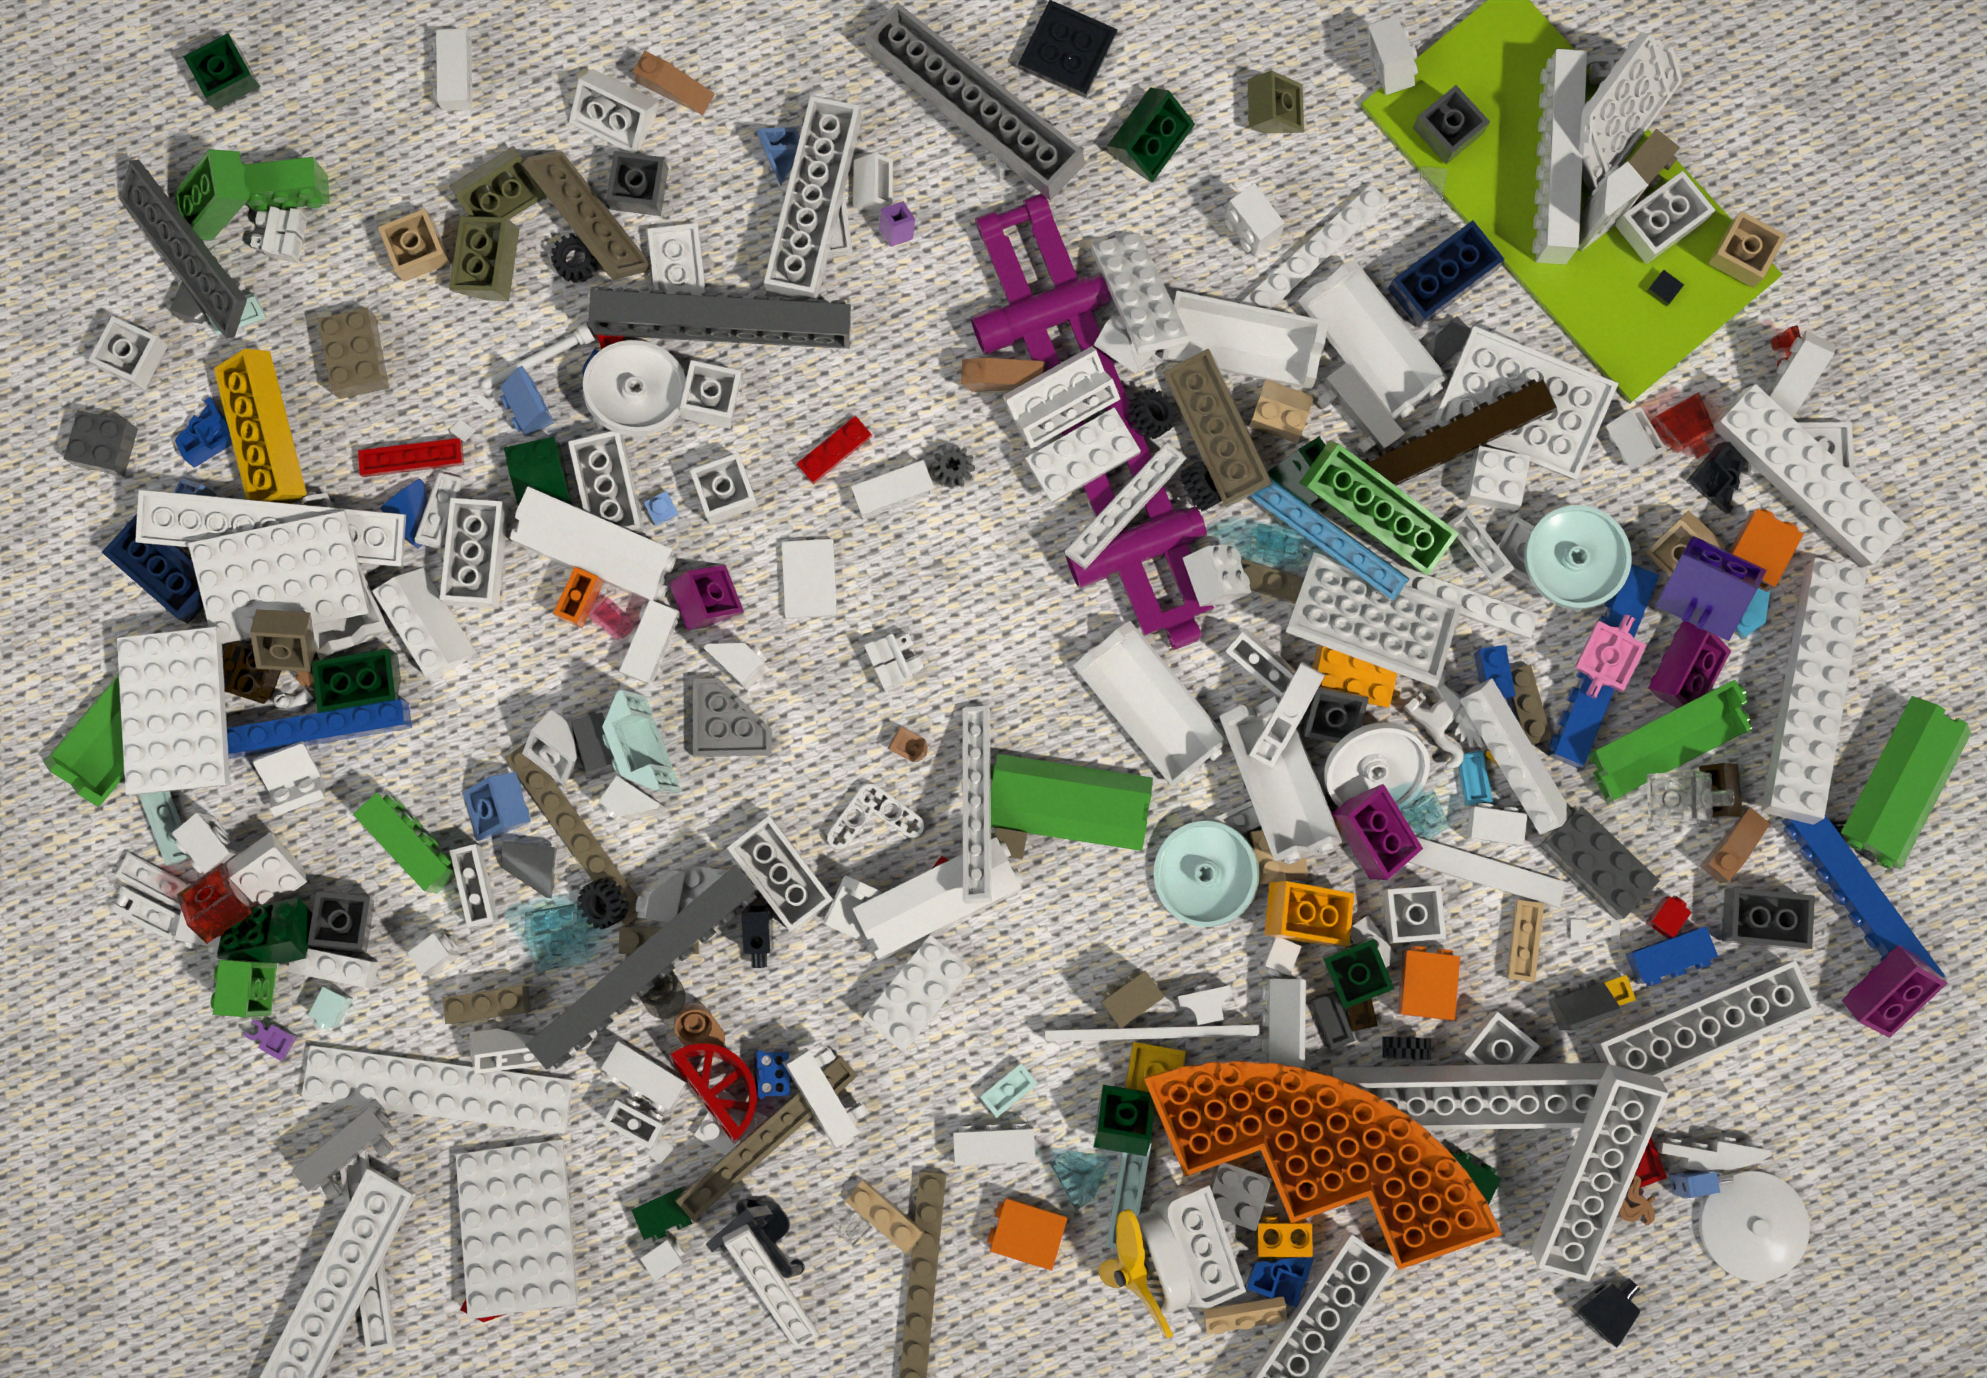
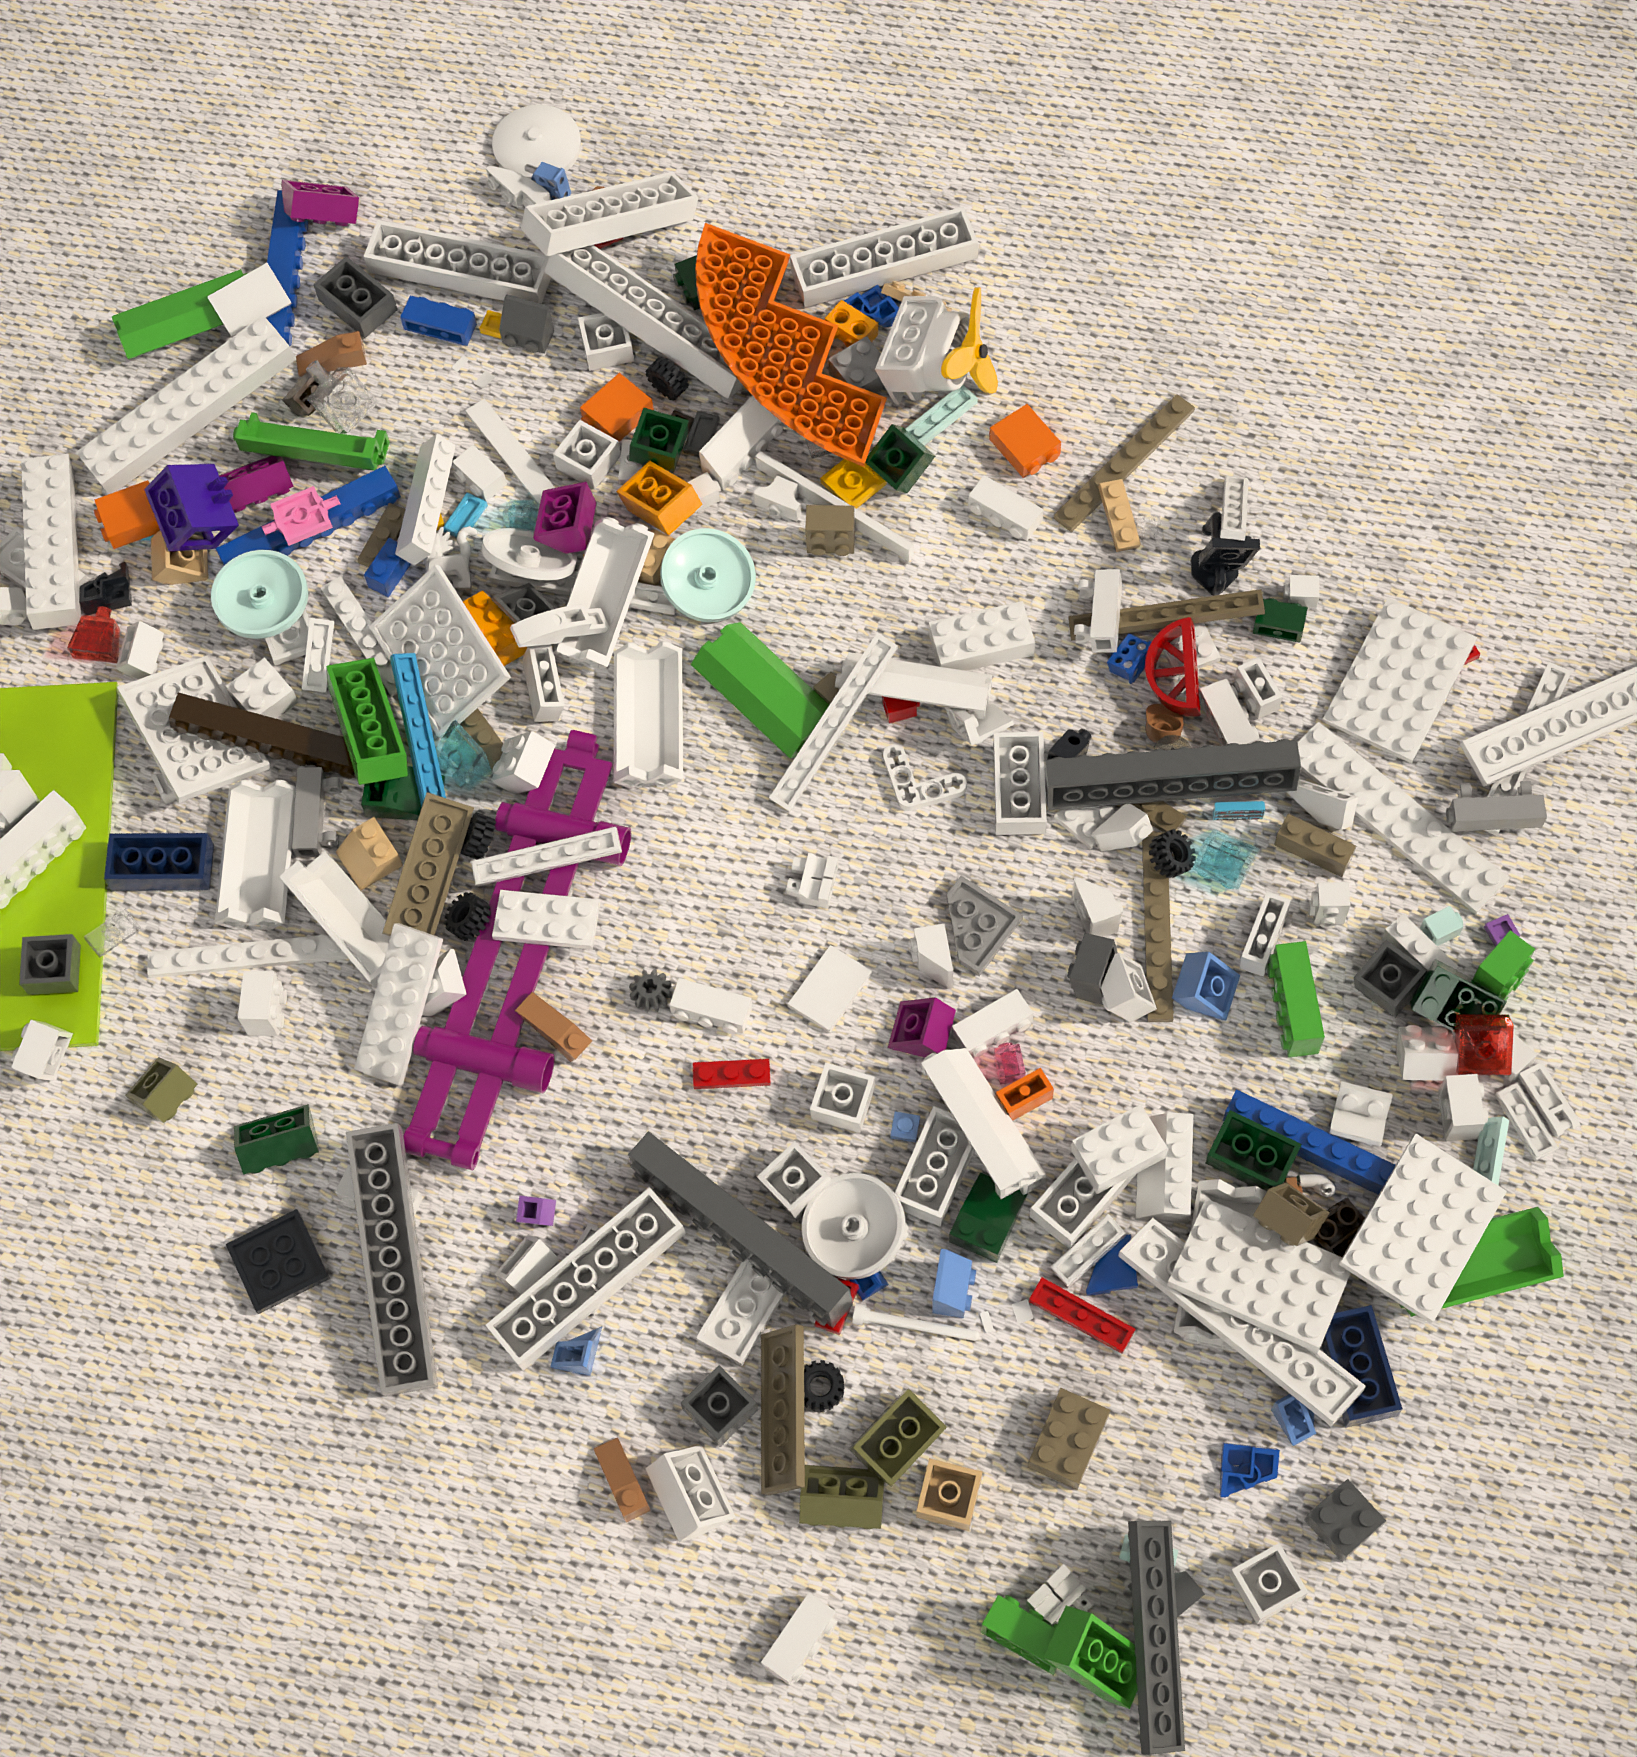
camera: 140 degrees left, 15 degrees down
(259, 427) = (1195, 1421): yellow brick -> none
(458, 593) = (1119, 1149): none -> white brick
(531, 865) = (1209, 926): dark grey slope -> none
(575, 991) = (1239, 810): none -> medium azure tile
(638, 744) = (1061, 935): light aqua slope -> none
(908, 745) = (850, 810): medium nougat plate -> none
(1008, 1090) = (965, 537): light aqua plate -> none
(1061, 397) = (525, 971): white slope -> none
(1080, 1175) = (959, 455): clear light blue slope -> none
(1448, 341) = (202, 819): dark grey tile -> none
(1525, 941) = (526, 393): tan plate -> none
(1599, 863) = (432, 400): dark grey brick -> none
(1610, 1310) = (673, 153): black torso -> none
(1665, 288) = (15, 739): black tile -> none
(1669, 916) = (417, 343): red brick -> none
(1855, 831) = (249, 299): none -> white tile

